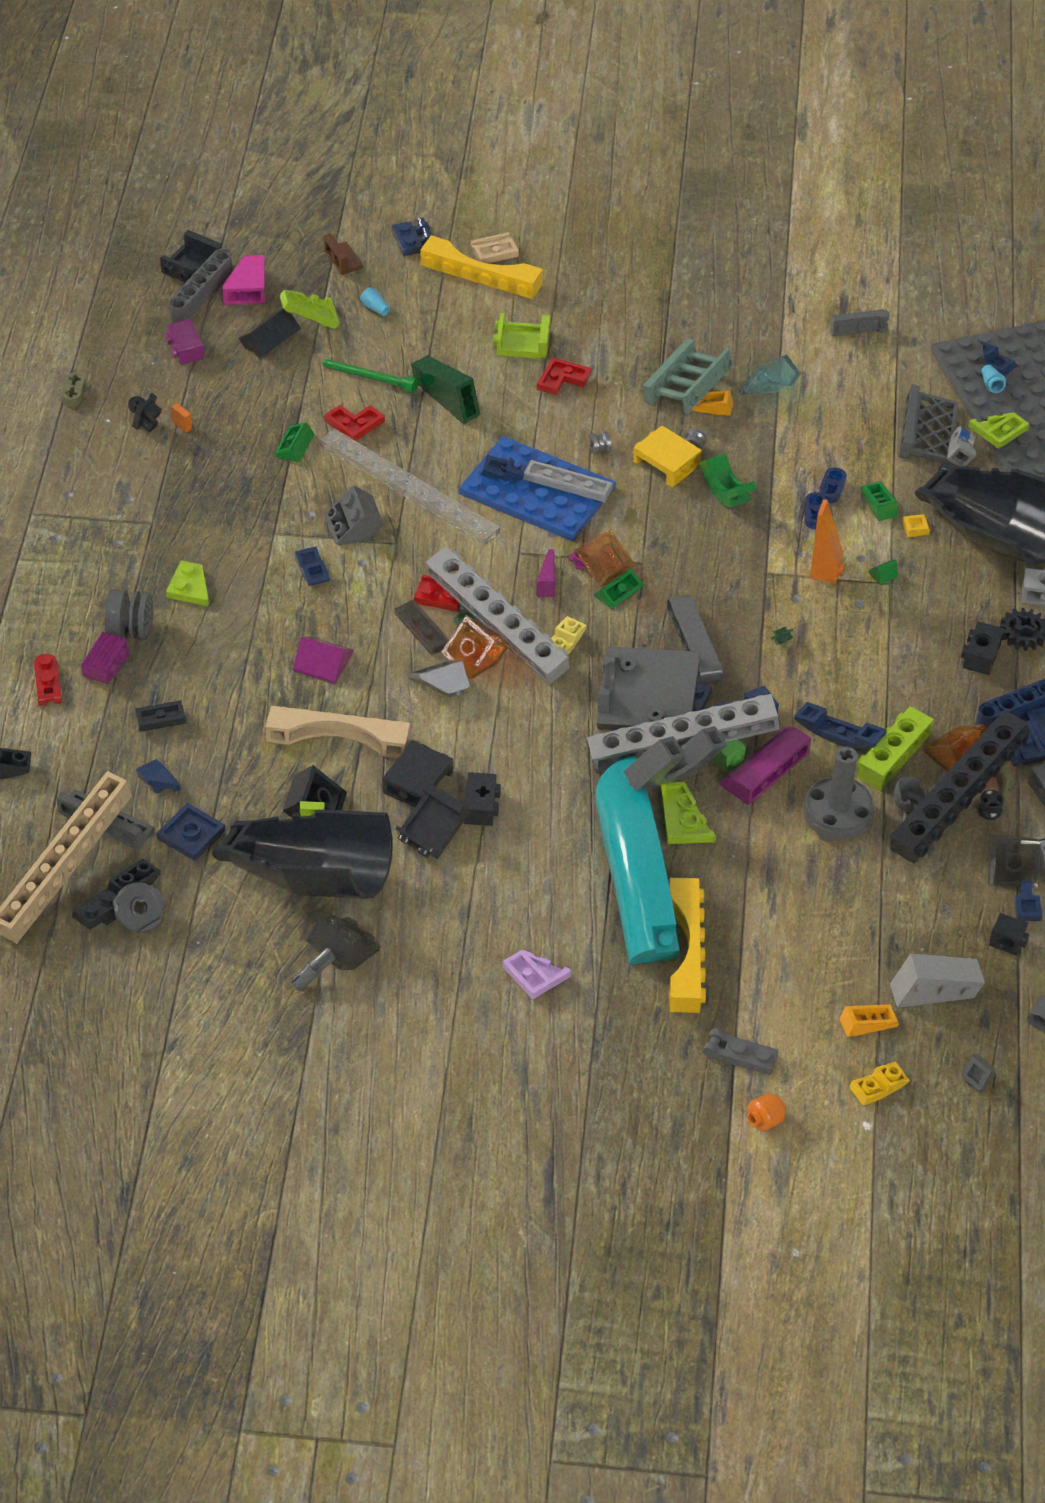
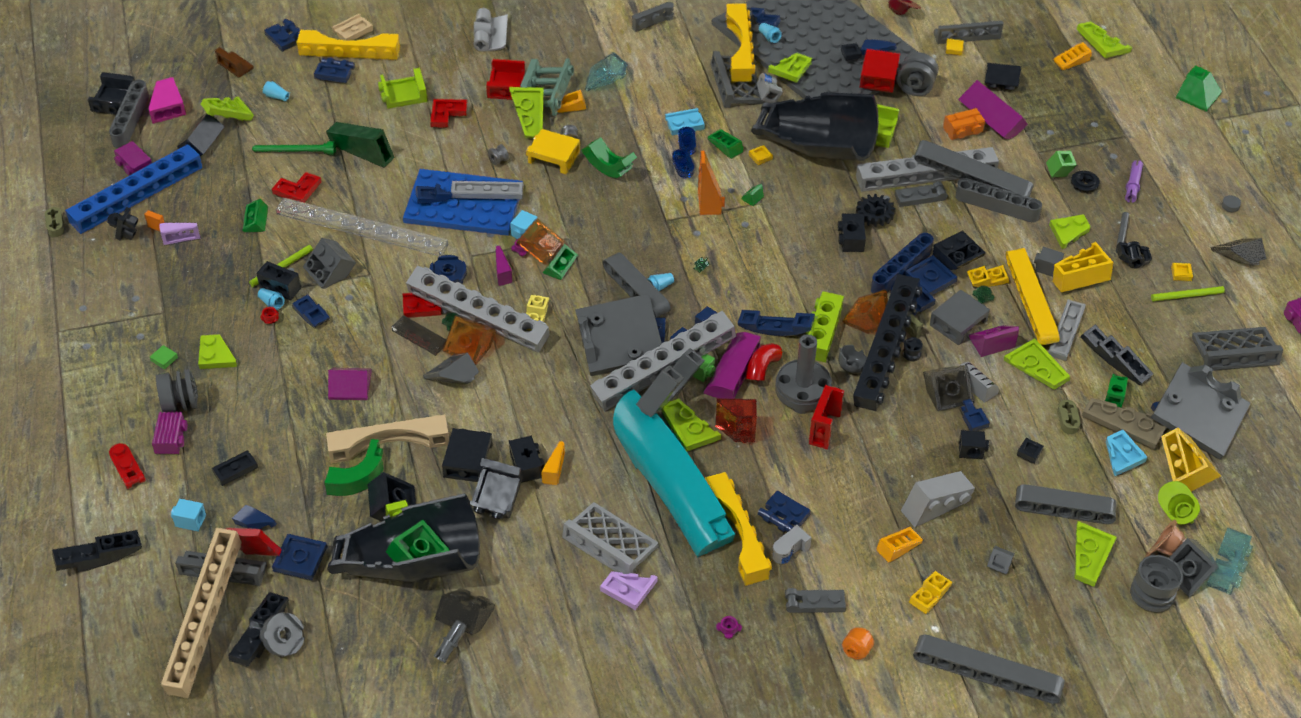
camera: 20 degrees left, 0 degrees up
(91, 751) = (188, 514): none -> medium azure brick
(132, 573) = (163, 357): none -> bright green tile
(147, 801) = (256, 542): none -> red tile
(174, 374) = (134, 188): none -> blue brick
(192, 434) = (170, 235): none -> lavender slope
(265, 558) = (269, 315): none -> red plate
(274, 540) = (271, 298): none -> medium azure cone
(283, 765) = (355, 479): none -> green arch
(289, 522) = (279, 280): none -> black brick
(300, 506) = (288, 261): none -> lime bar
(317, 851) = (416, 543): none -> green slope
(452, 293) = (334, 70): none -> dark blue plate
(487, 552) = (457, 268): none -> dark blue plate
(507, 818) = (553, 467): none -> light orange slope
(522, 920) = (600, 548): none -> light grey fence
(591, 529) = (521, 223): none -> medium azure brick
(625, 1044) = (729, 621): none -> magenta plate
(647, 354) = (504, 75): none -> red panel
(654, 292) = (489, 32): none -> light grey panel
(658, 397) = (529, 108): none -> lime wing
(725, 642) = (661, 280): none -> medium azure cone
(739, 981) = (790, 544): none -> light grey leg
(741, 823) = (737, 418): none -> clear red slope
(754, 940) = (786, 508): none -> dark blue plate
(800, 764) = (761, 359): none -> red cylinder
(848, 459) = (685, 118): none -> medium azure plate
(852, 837) = (821, 426): none -> red panel
(906, 1187) = (989, 669): none -> dark grey beam
(939, 407) = (741, 63): none -> yellow arch

